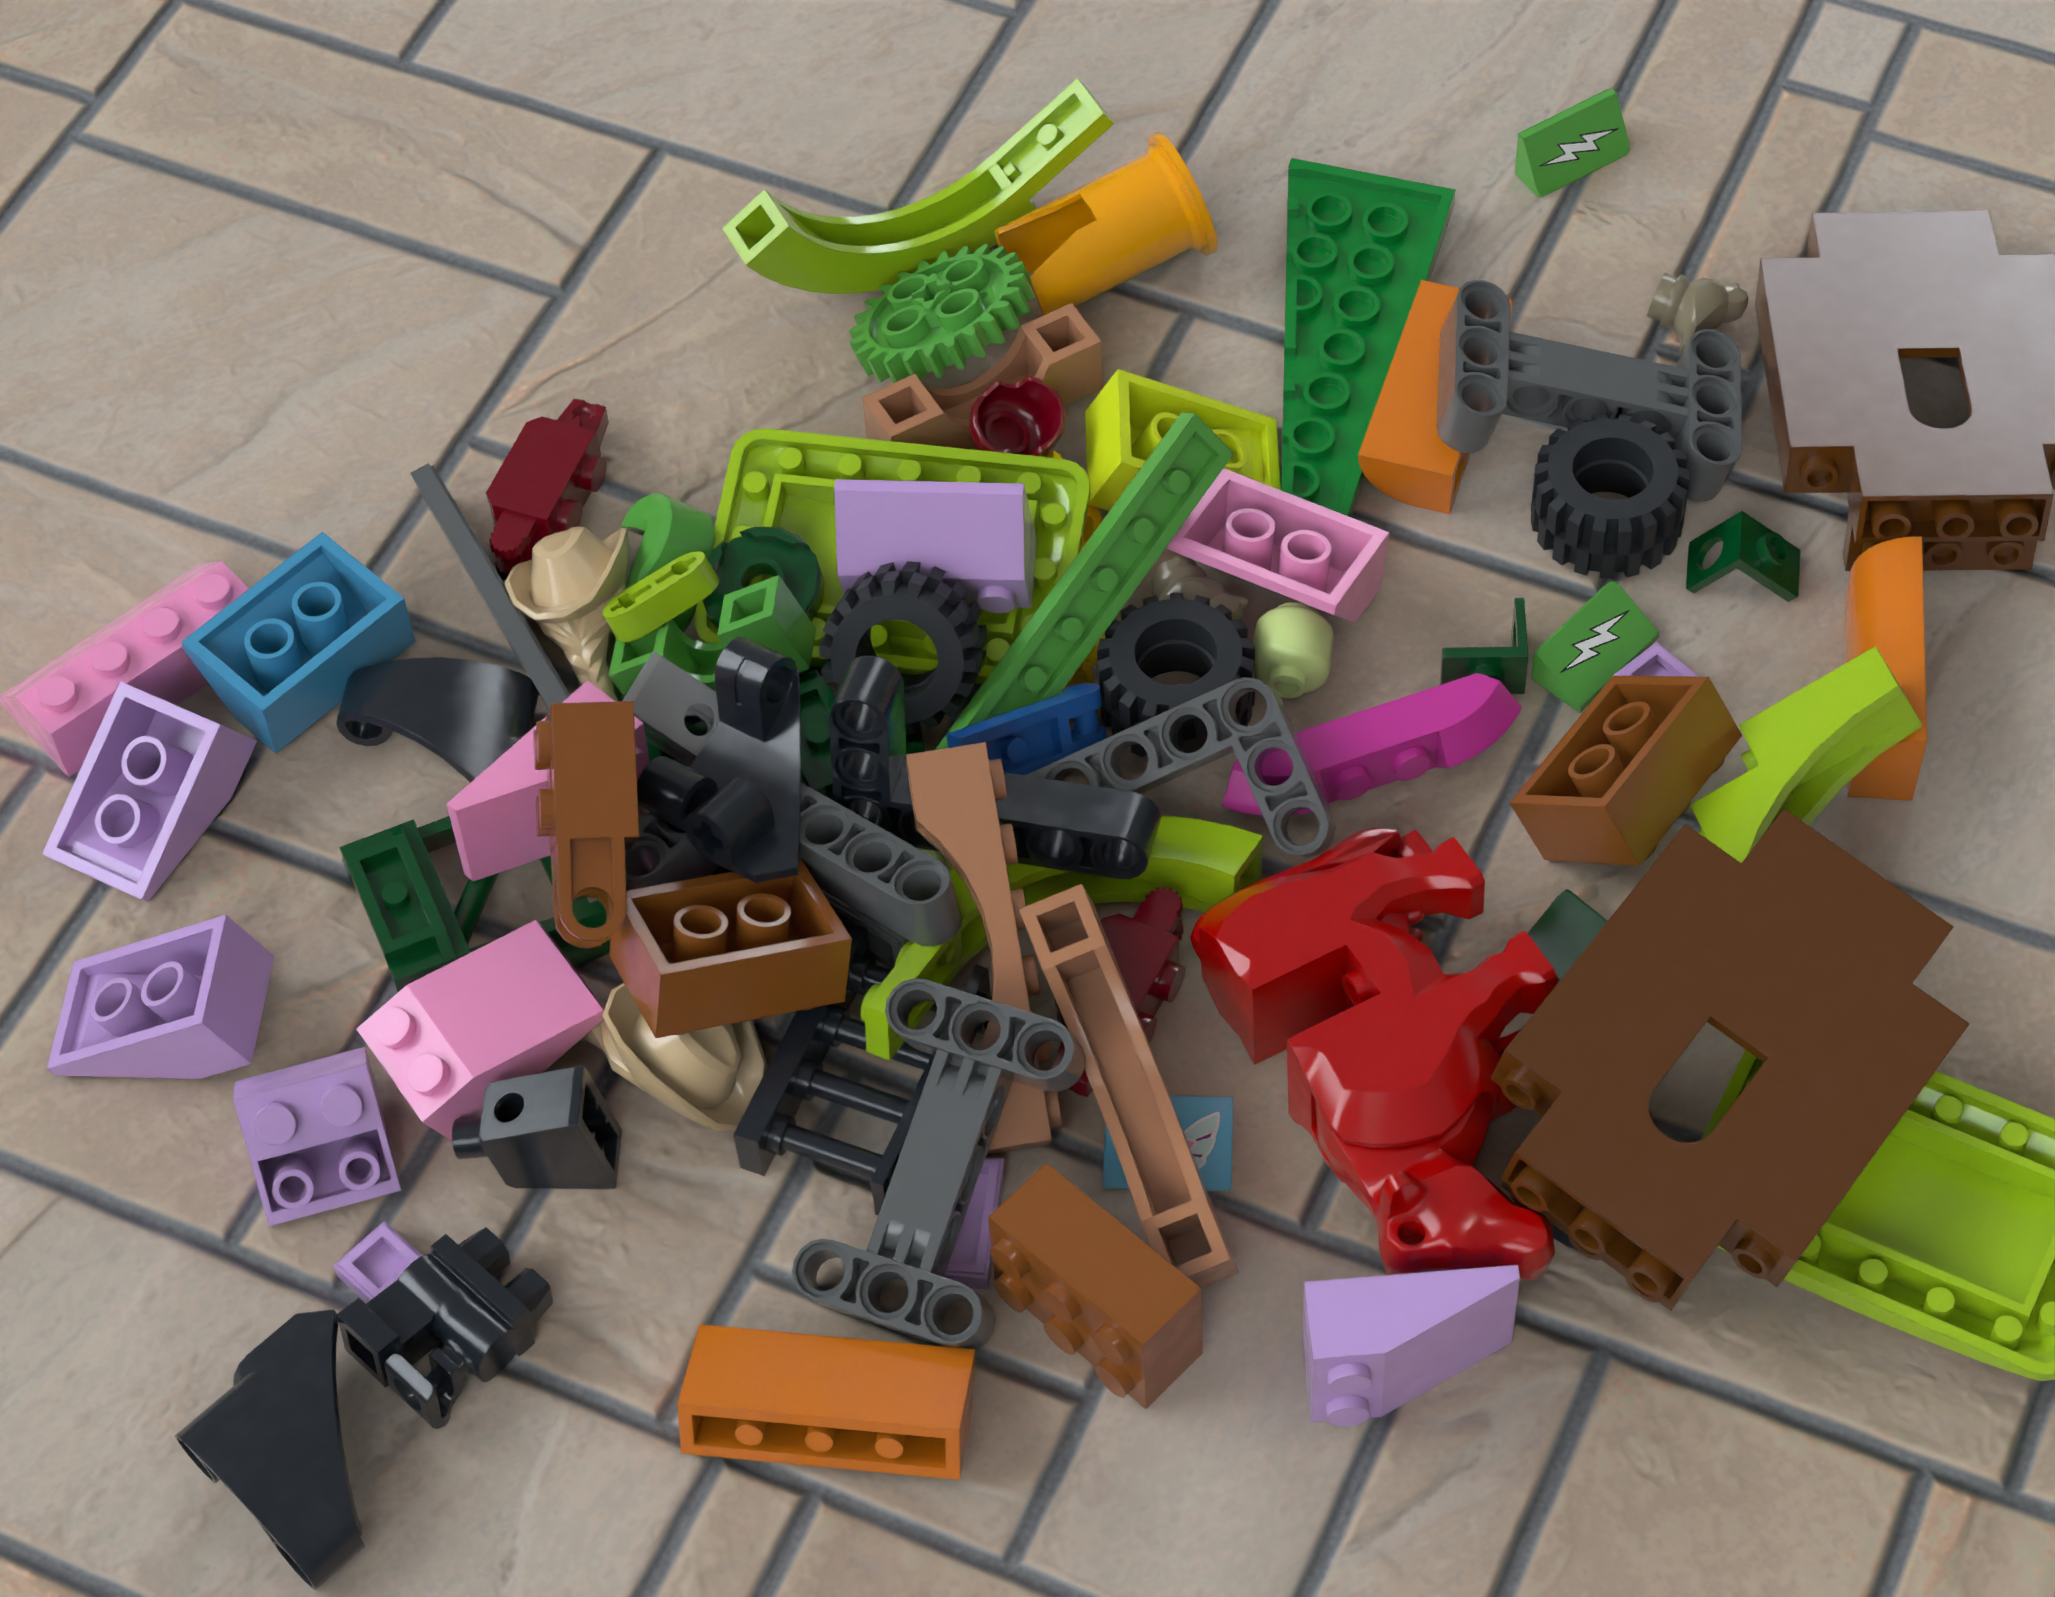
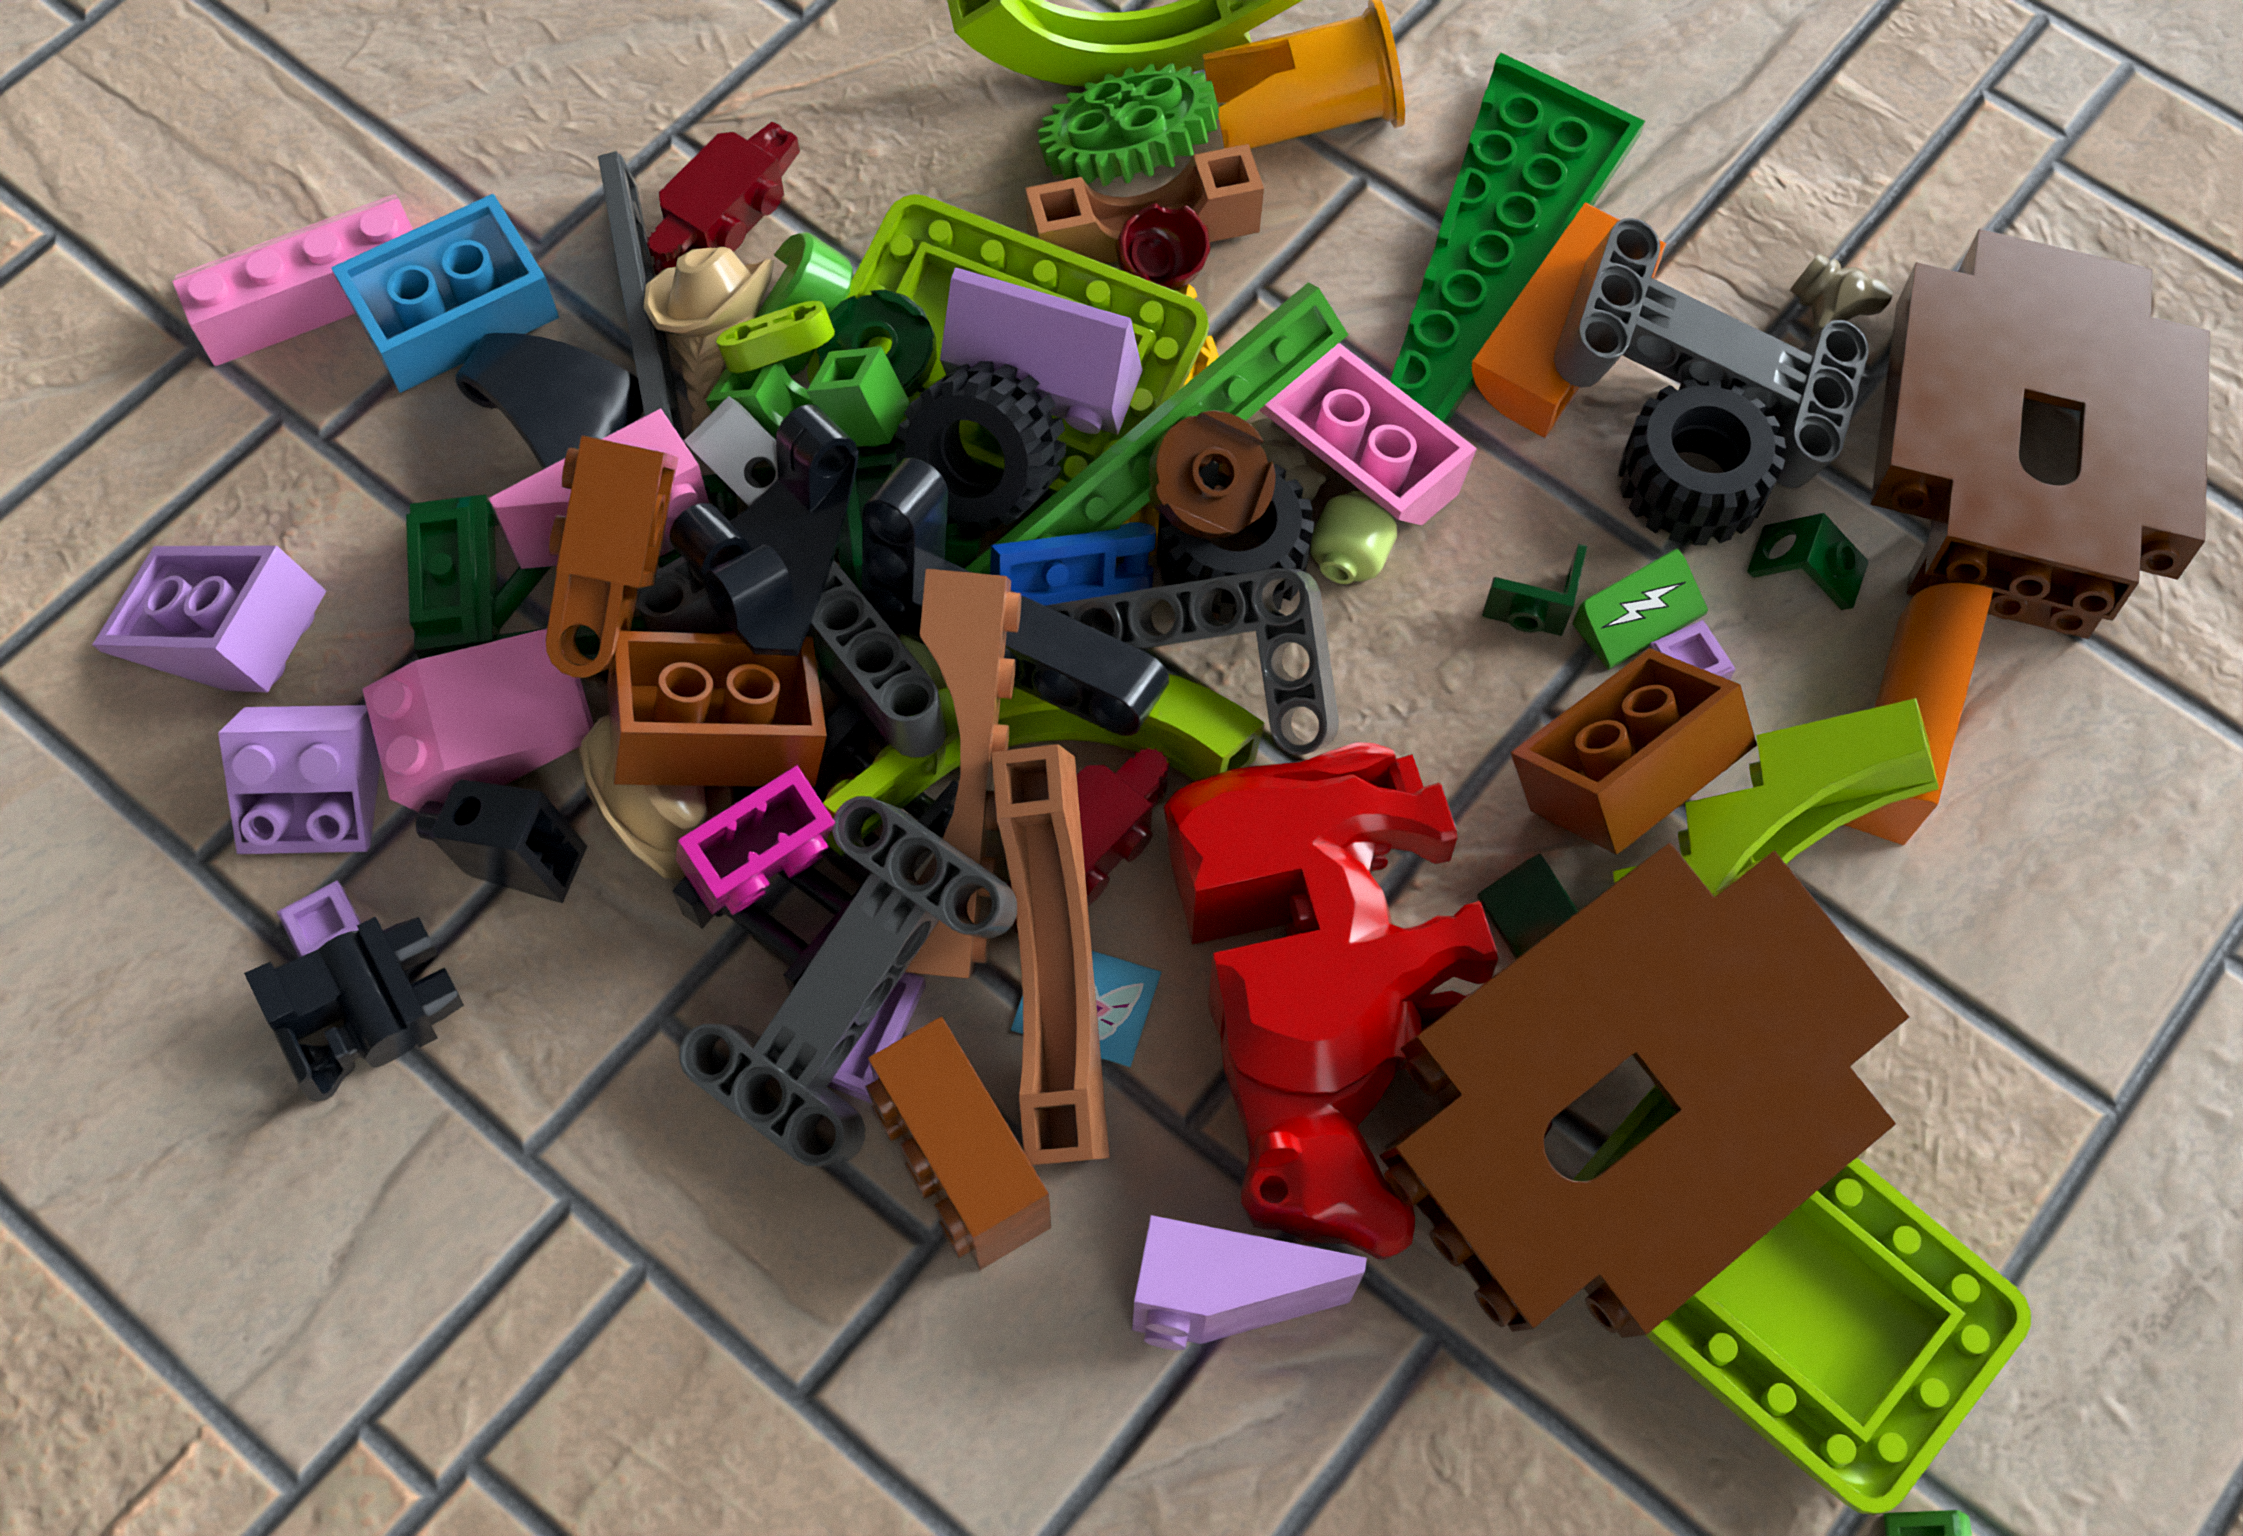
camera: 10 degrees right, 10 degrees up
(146, 792) = (269, 399): lavender slope -> none
(282, 1446) = (150, 1088): black panel -> none
(813, 1054) = (755, 839): none -> dark pink brick
(827, 1401) = (678, 1183): orange brick -> none
(1118, 640) = (1180, 491): none -> reddish brown plate
(1136, 414) = (1277, 265): neon yellow slope -> none
(1391, 741) = (1422, 655): dark pink brick -> none
(1571, 144) = (1768, 103): bright green slope -> none

